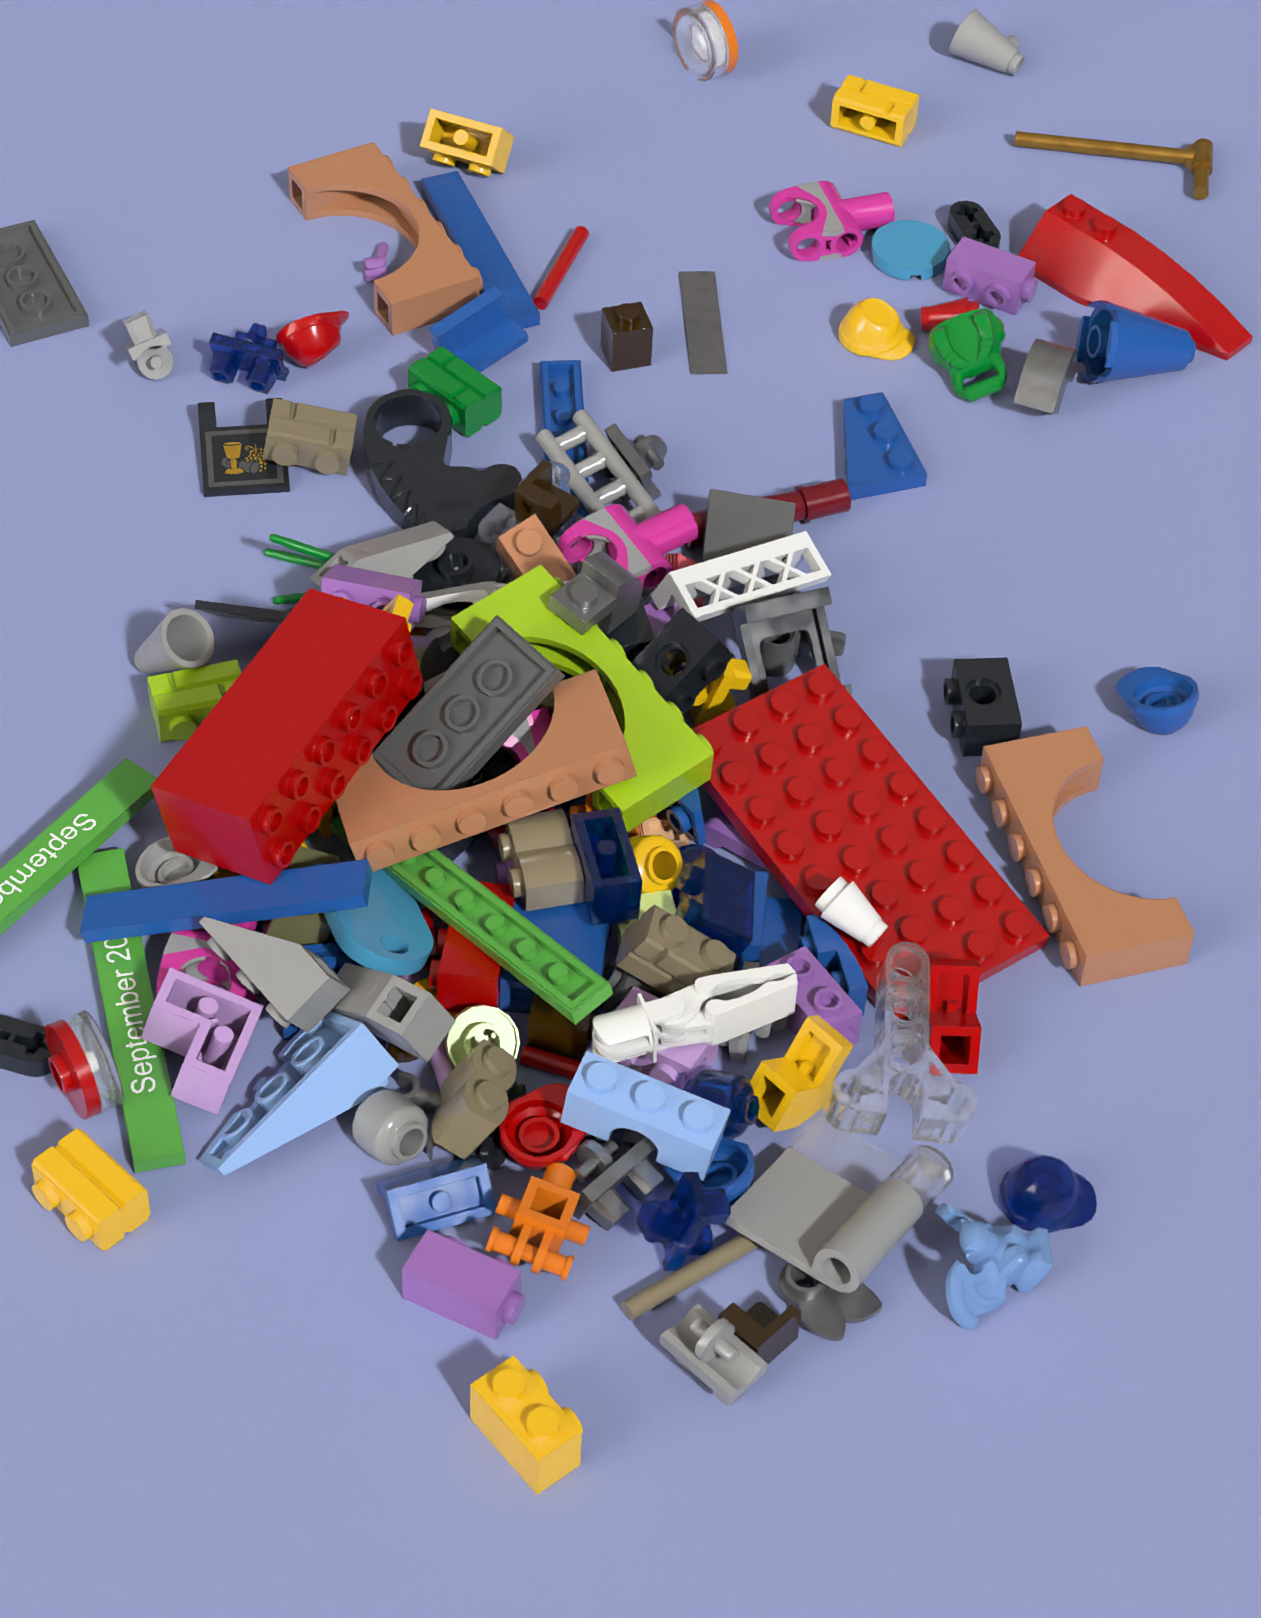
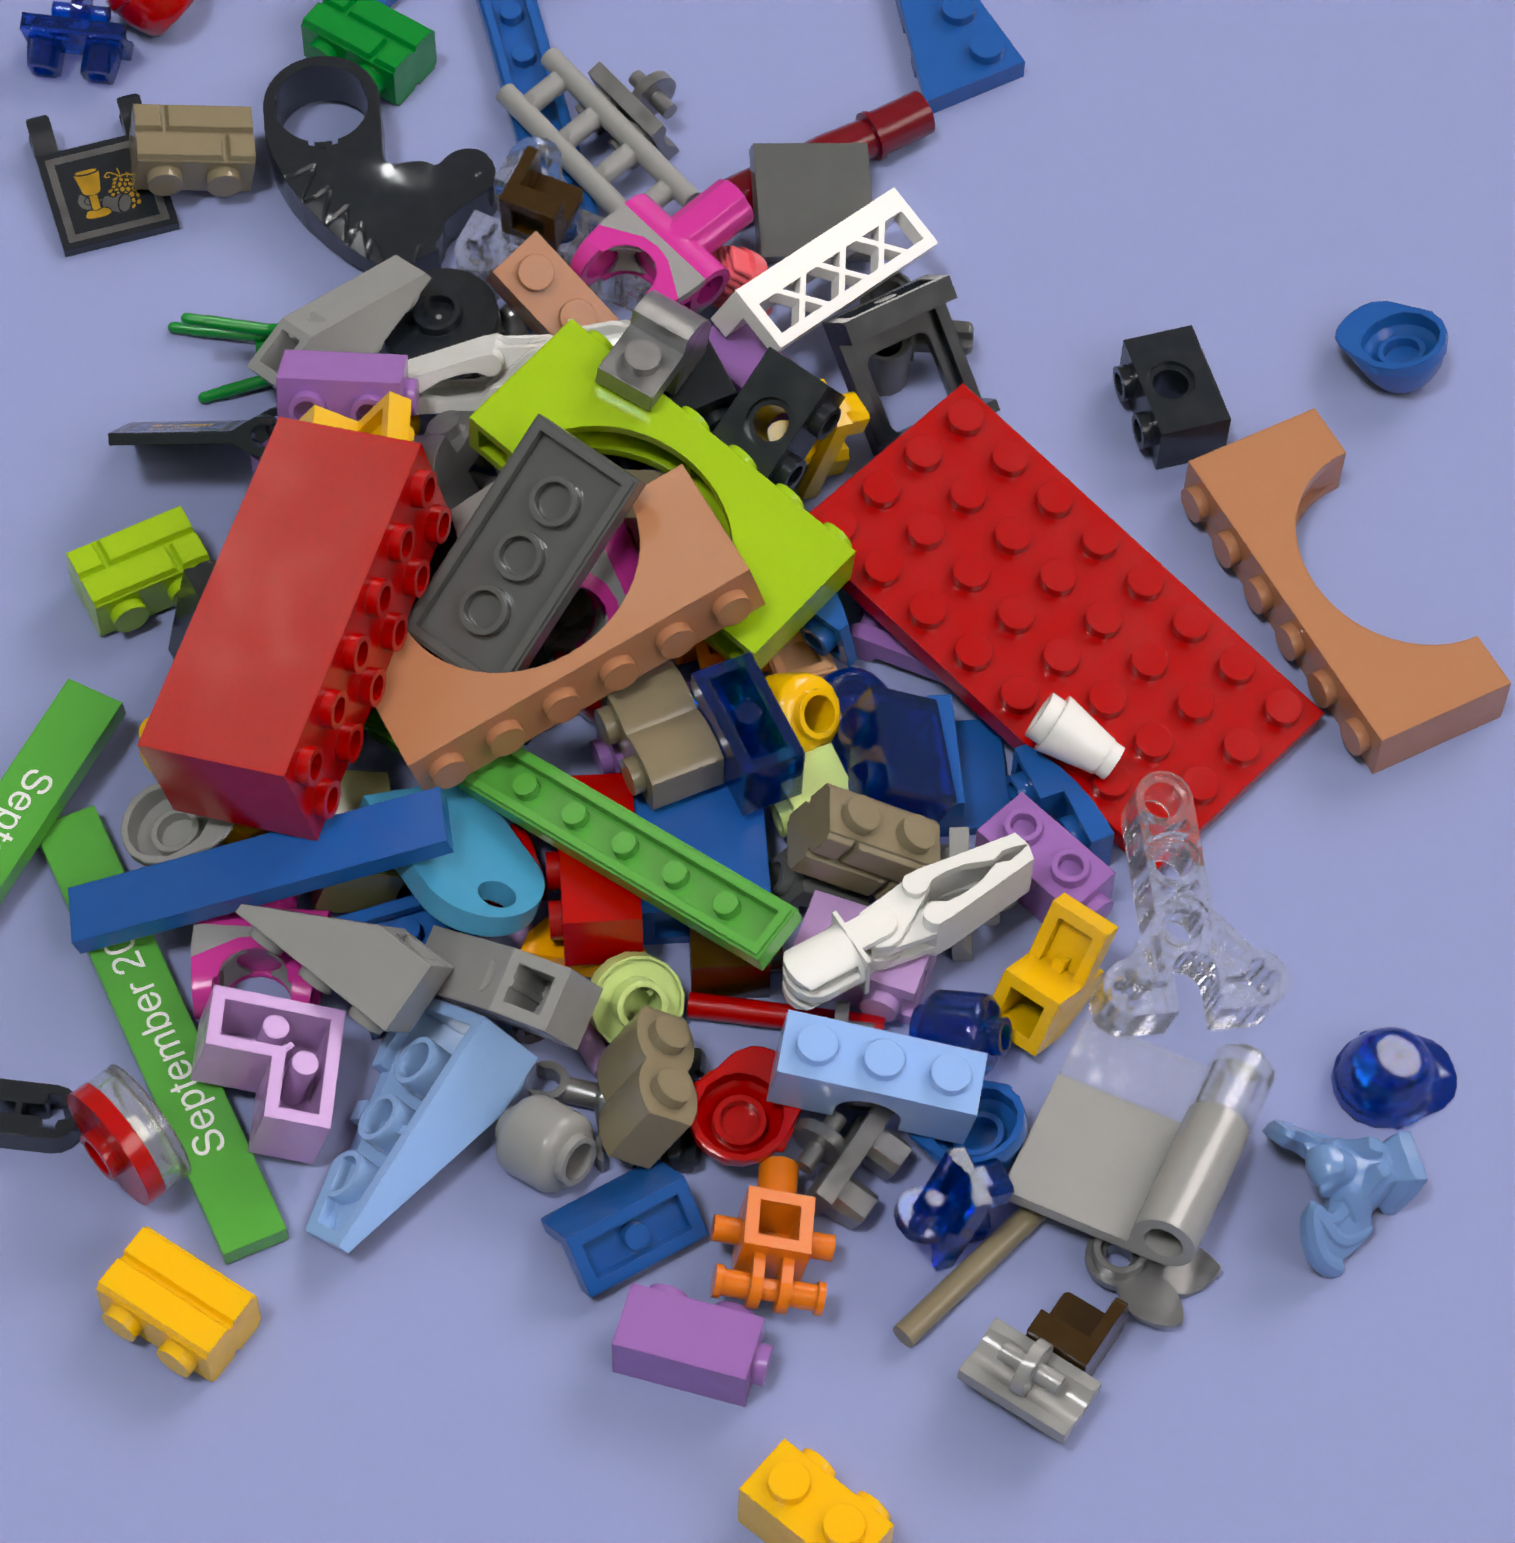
camera: 10 degrees left, 10 degrees up
(177, 643) = (96, 498): light grey piece -> none
(953, 1016) = (1234, 864): red brick -> none

